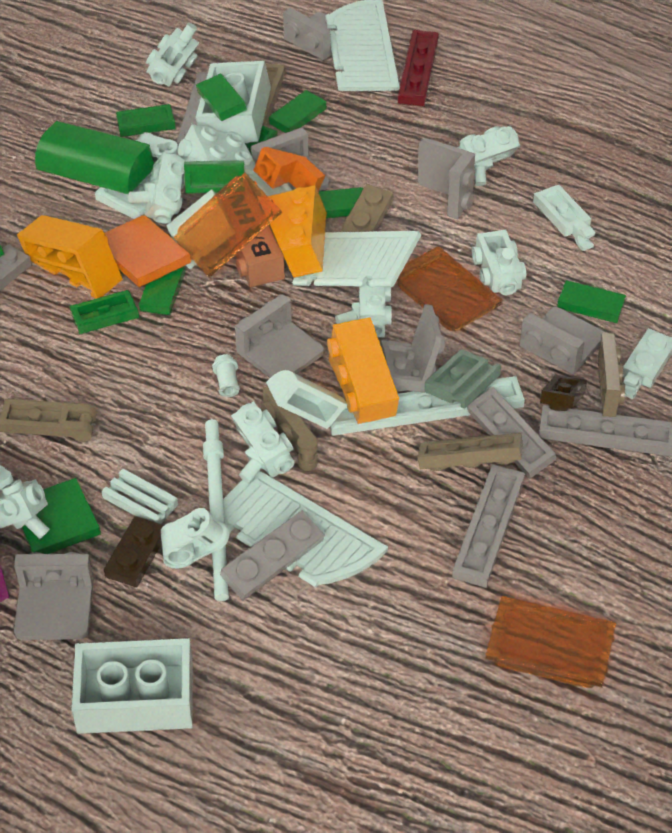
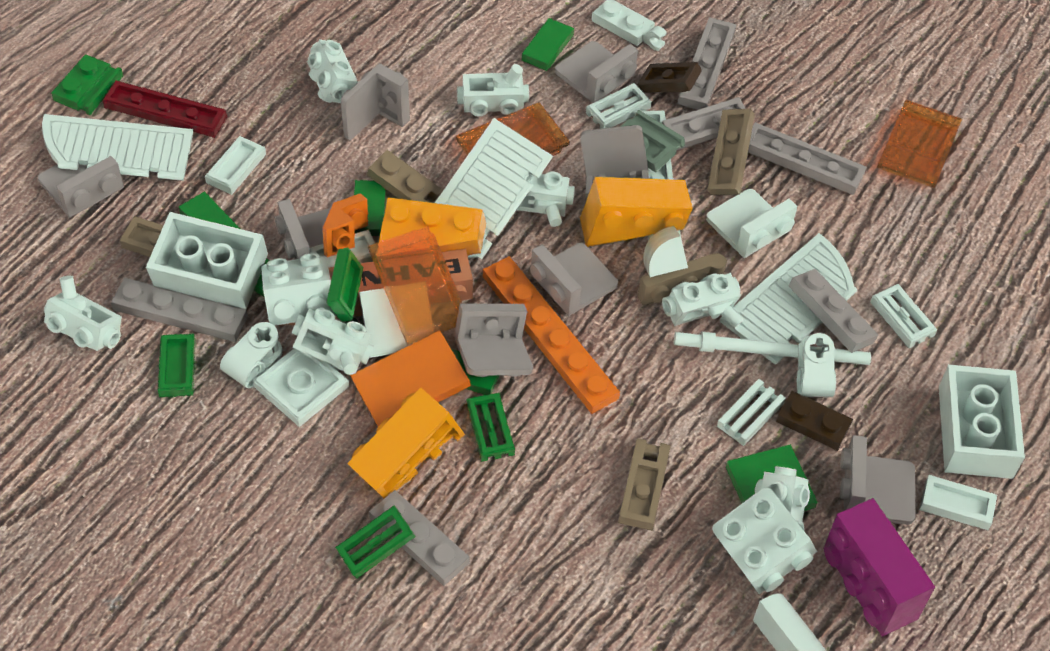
camera: 85 degrees left, 5 degrees up
(43, 681) = (958, 502): none -> light aqua tile
(93, 157) = (250, 412): green brick -> none
(182, 294) = (492, 339): none -> light grey bracket
(198, 348) = (552, 336): none -> orange plate
(221, 97) = (224, 257): green tile -> none
(226, 368) = (604, 324): light aqua pin -> none
(290, 633) = (899, 318): none -> light aqua tile
(366, 117) = (235, 165): none -> light aqua tile
(382, 479) = (751, 222): none -> light aqua bracket
(432, 18) = (86, 84): none -> green plate
(518, 366) = (622, 109): none -> light aqua tile
(565, 215) = (435, 36): light aqua plate -> none
(610, 375) = (657, 43): dark tan plate -> none

